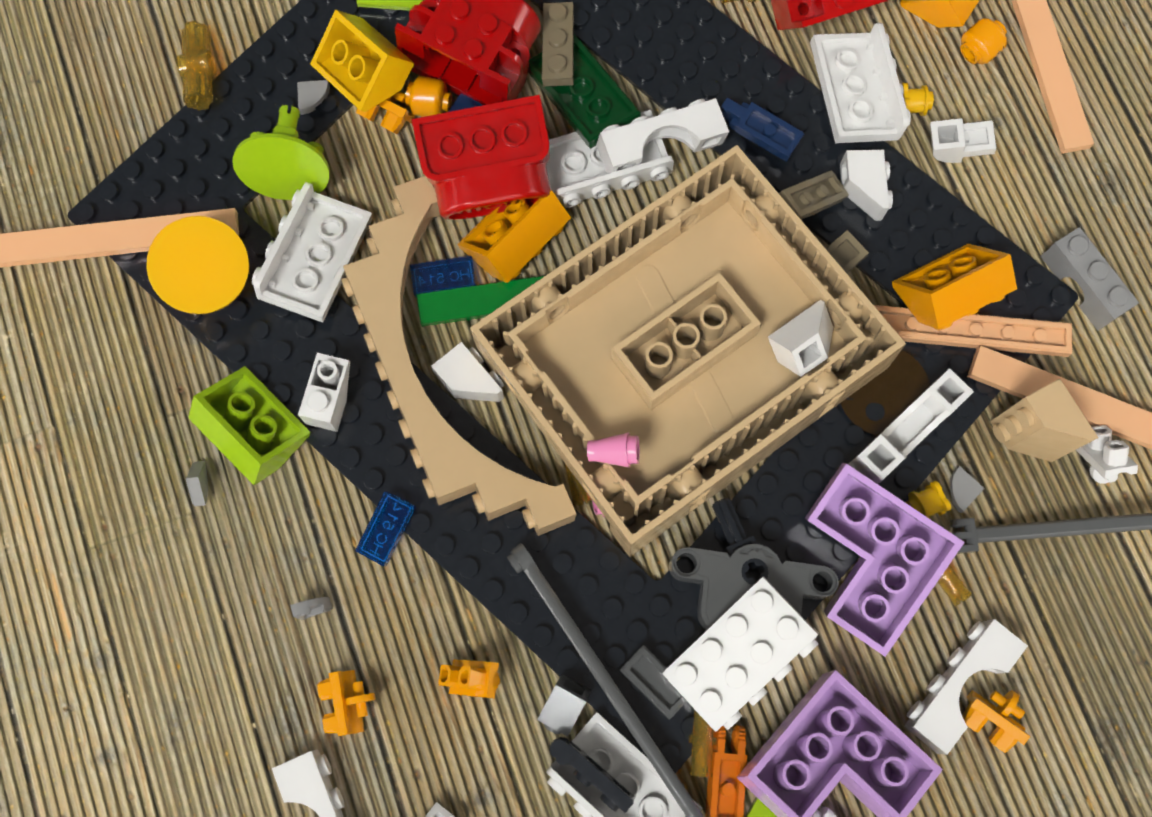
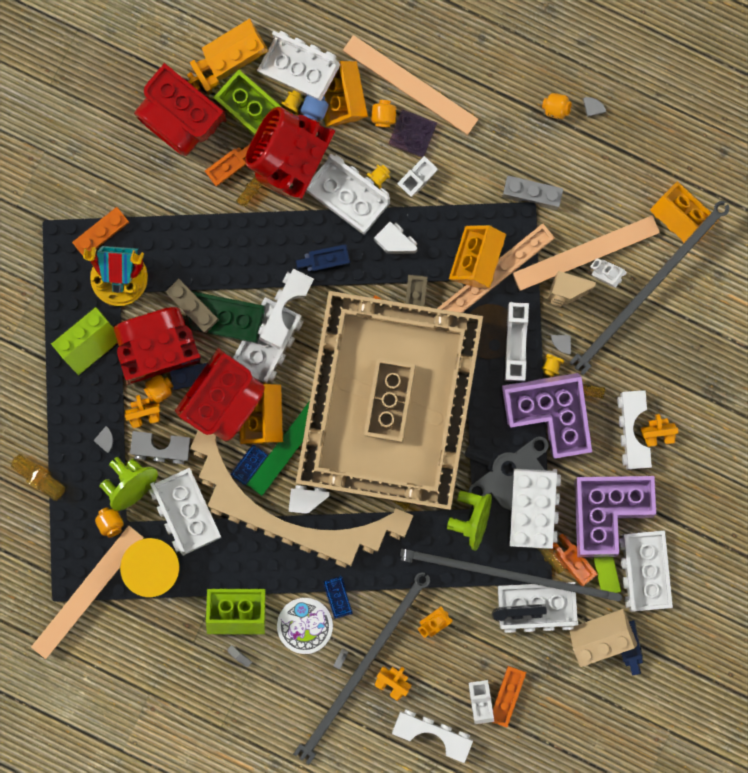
camera: 40 degrees left, 10 degrees up
(162, 680) = (308, 748): none -> dark grey hinge
(216, 183) = (109, 522): none -> light orange head
(313, 526) = (304, 625): none -> sticker
(326, 392) = (256, 566): white slope -> none
(347, 142) = (143, 446): none -> light grey arch
(360, 61) = (116, 405): yellow slope -> none
(564, 705) = (482, 596): brick -> none
(615, 450) = (409, 477): bright pink cone -> none
(646, 675) = (504, 552): dark grey tile -> none
(651, 600) = (476, 526): none -> lime piece
(804, 340) = (439, 352): white slope -> none
(814, 194) = (379, 275): dark tan plate -> none
(997, 93) = (412, 133): none -> clear purple tile

